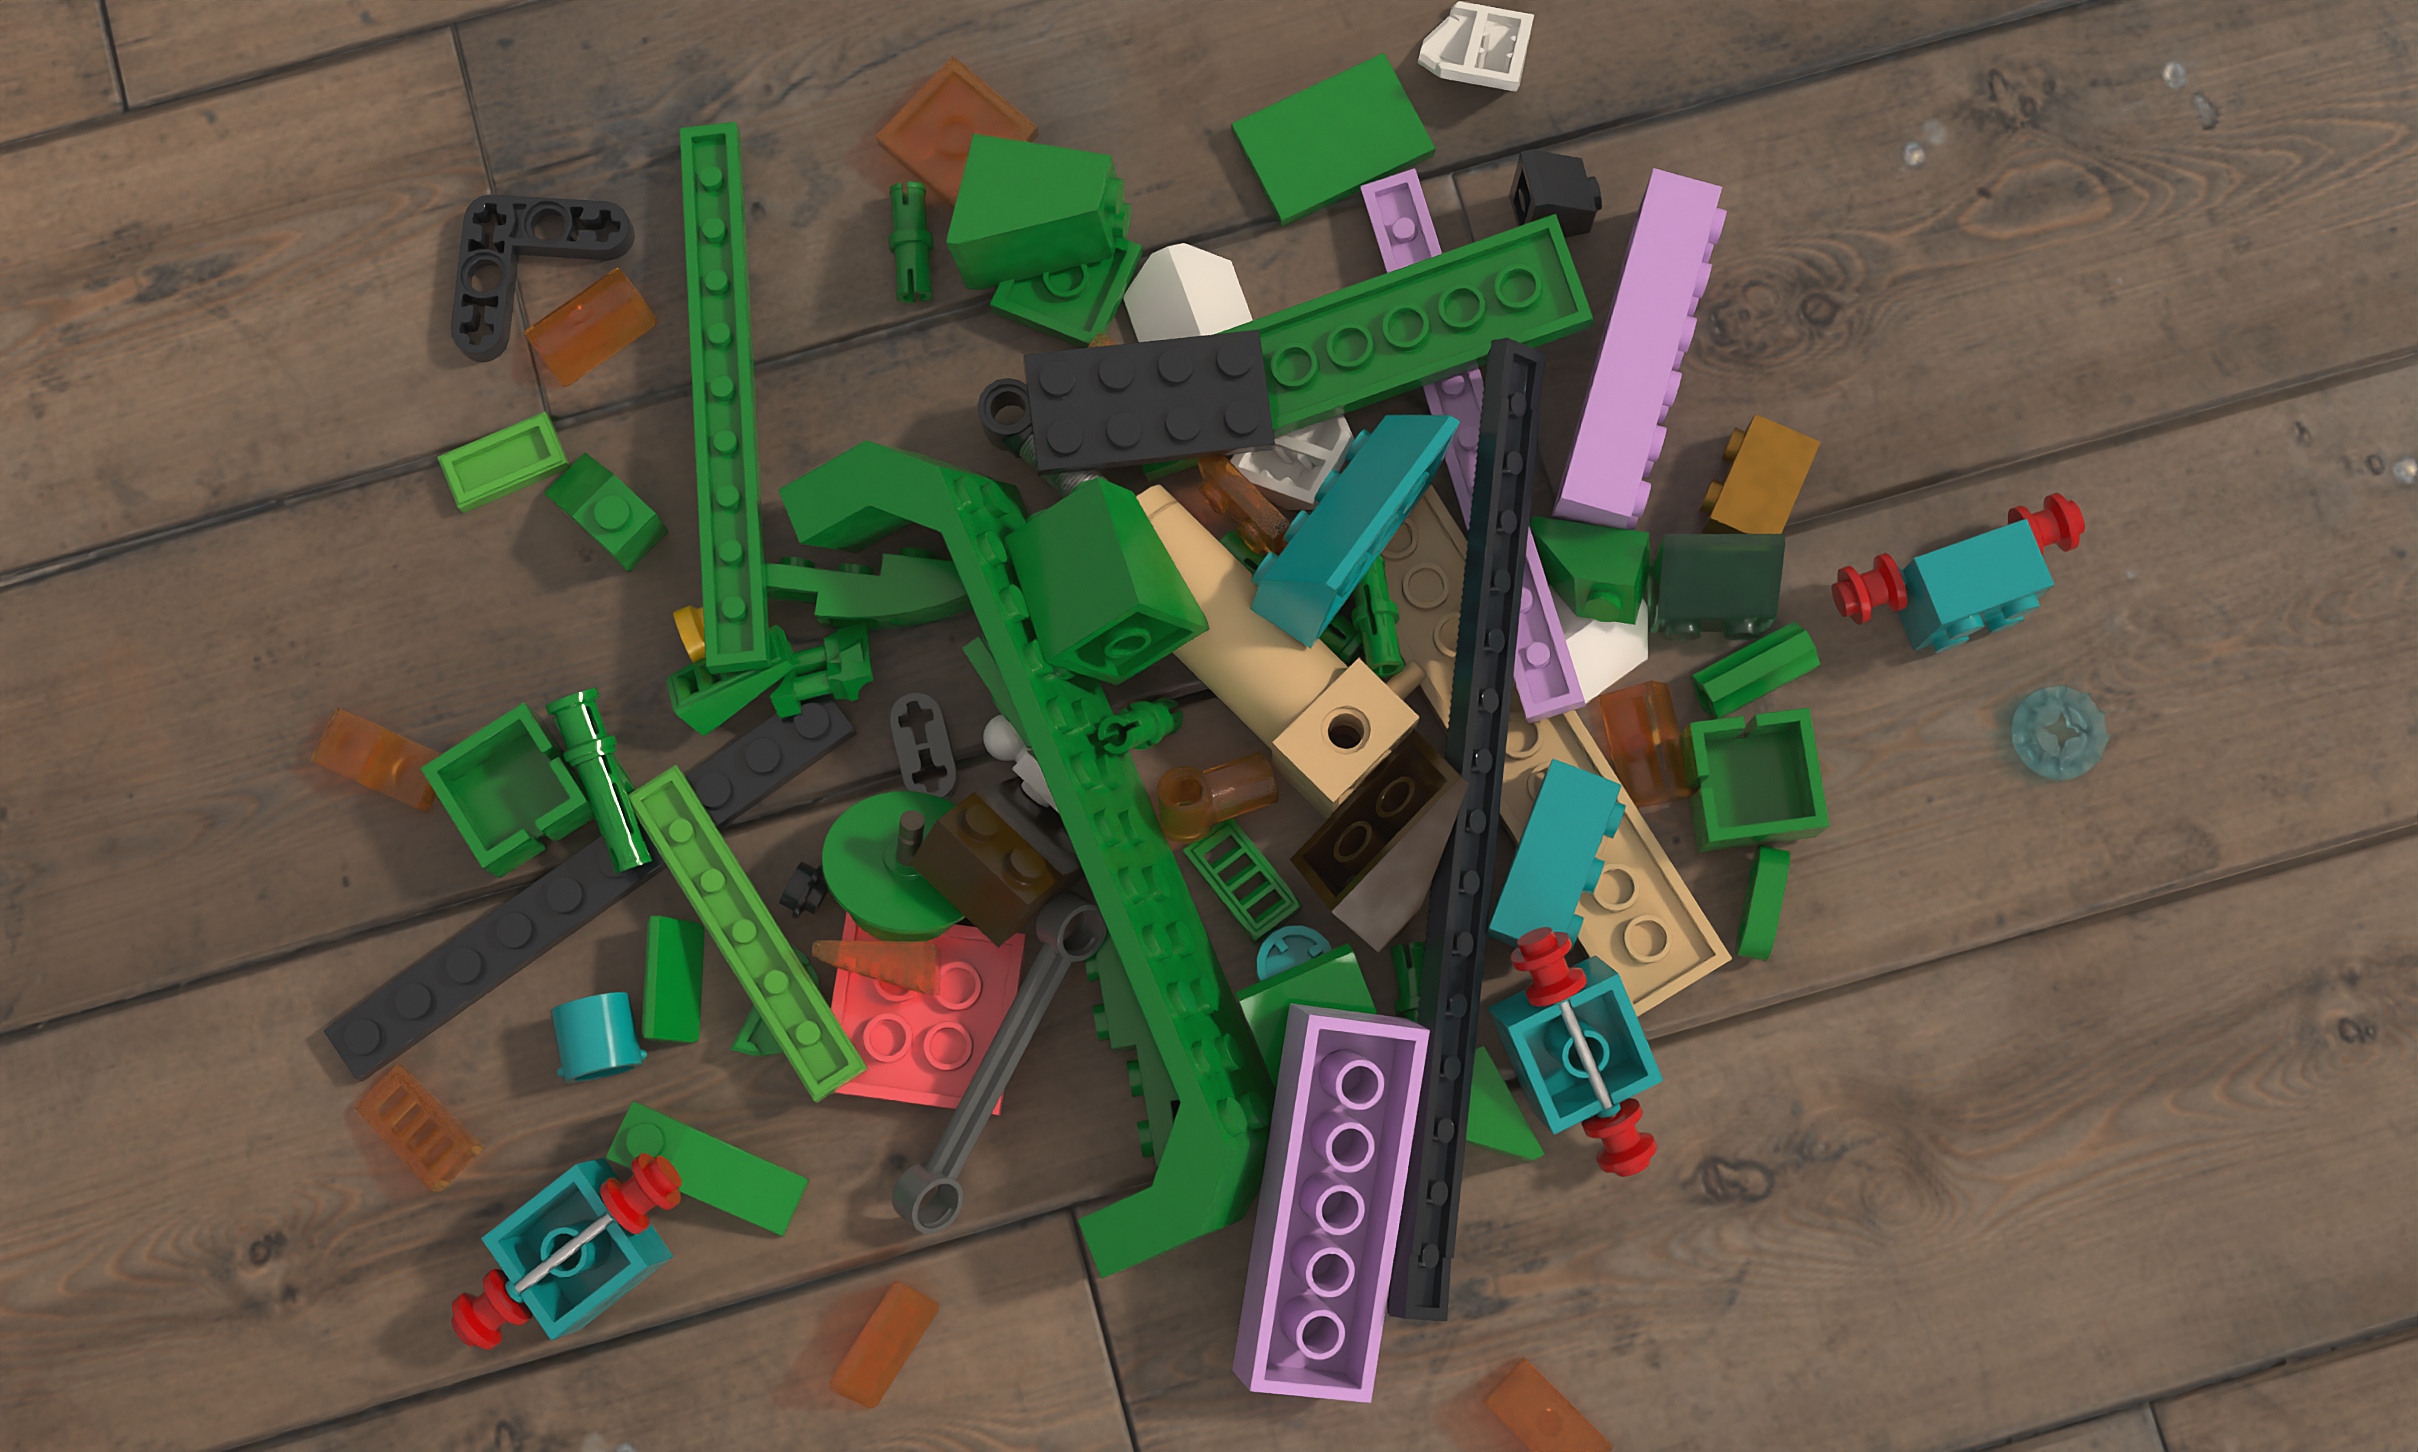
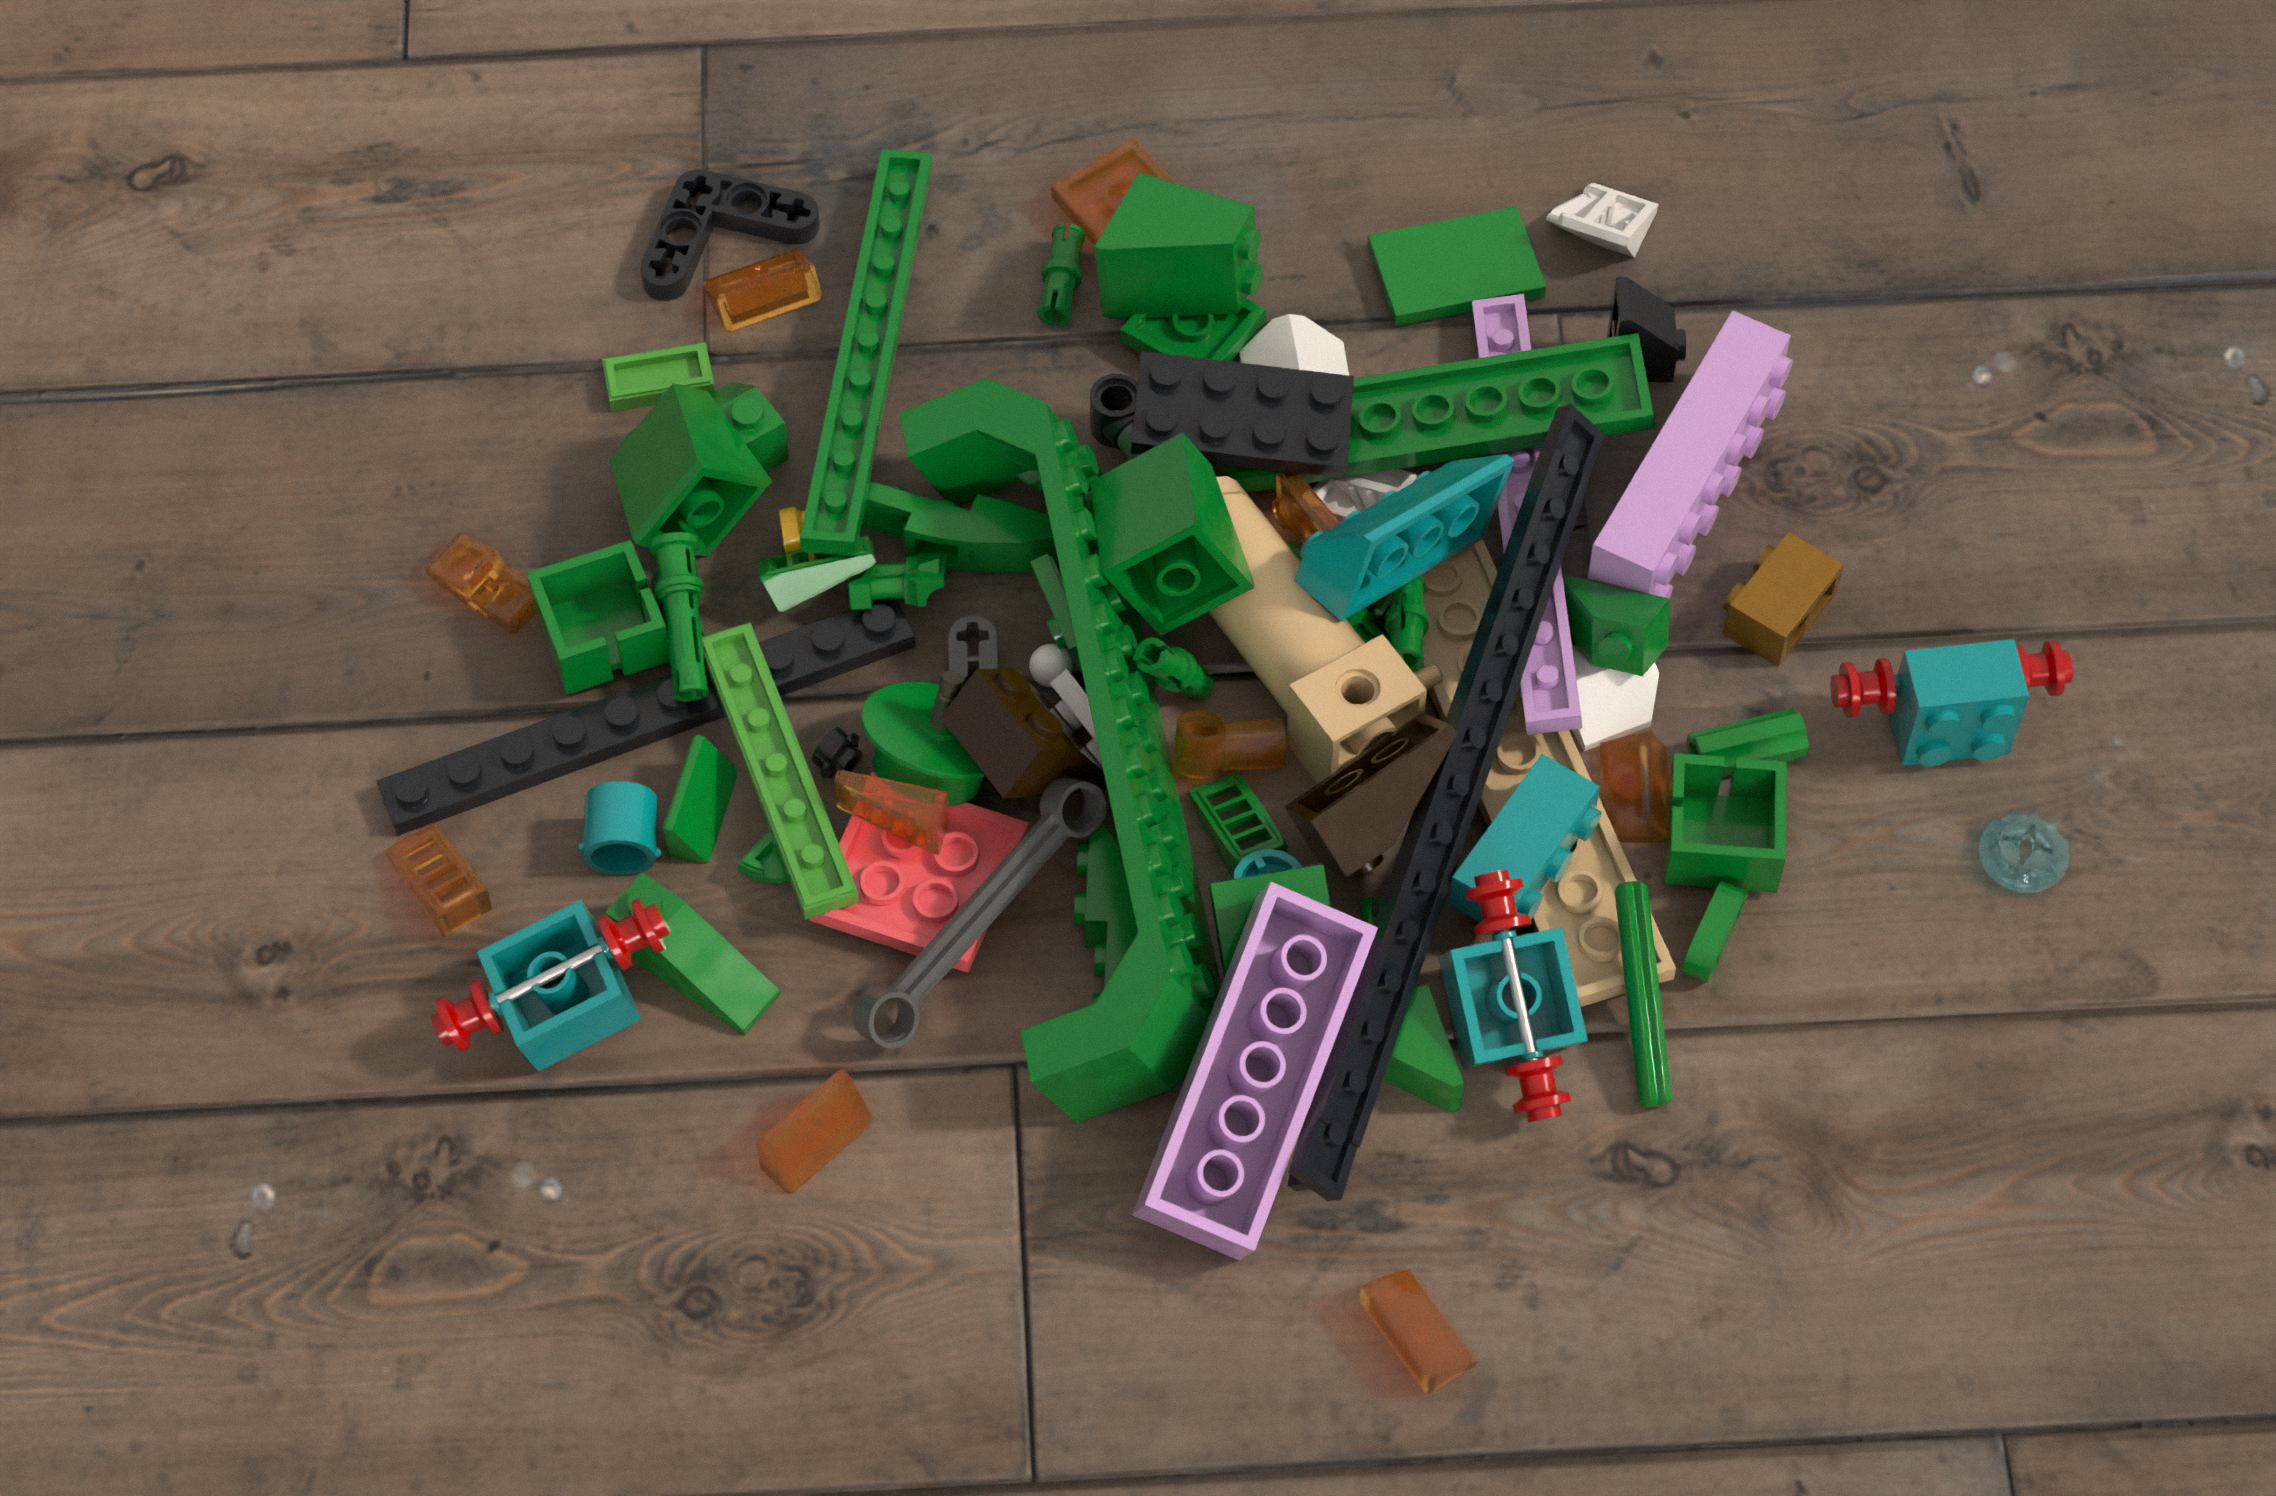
camera: 10 degrees right, 20 degrees down
(560, 600) = (686, 471): none -> green slope
(1705, 1001) = (1643, 994): none -> green axle
(1715, 585) = (1723, 656): clear green slope -> none

